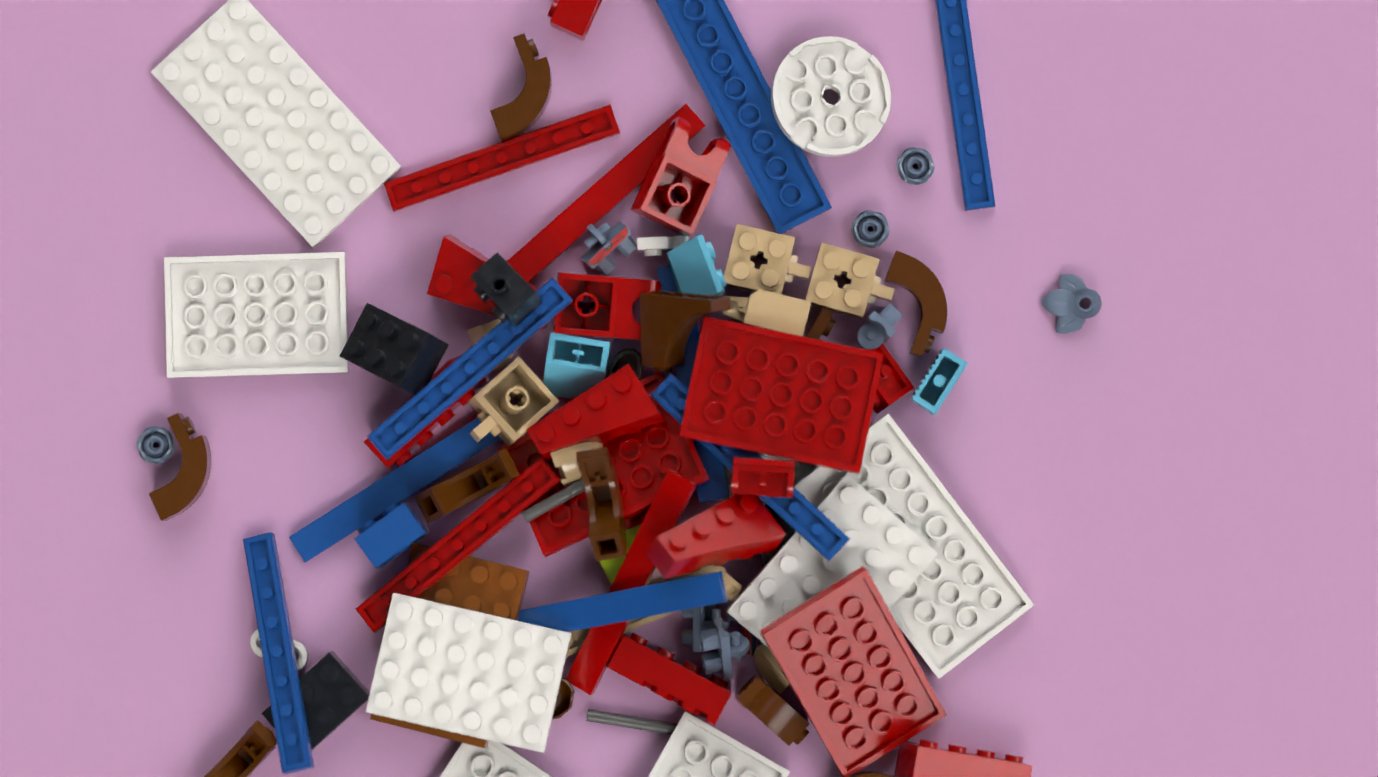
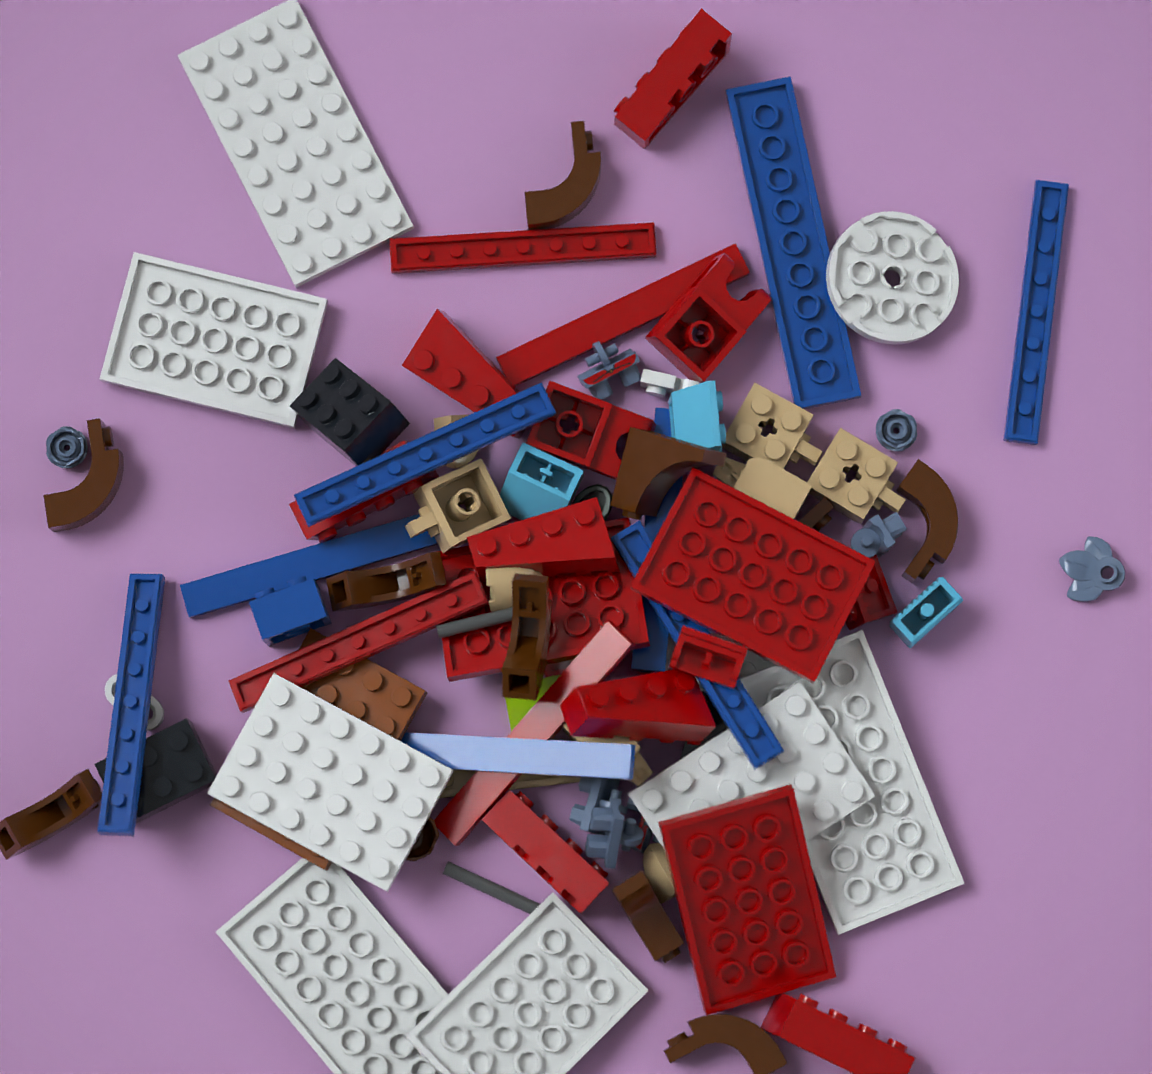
camera: 15 degrees right, 5 degrees down
(506, 290) = (487, 380): black brick -> none
(915, 156) = (963, 366): sand blue plate -> none

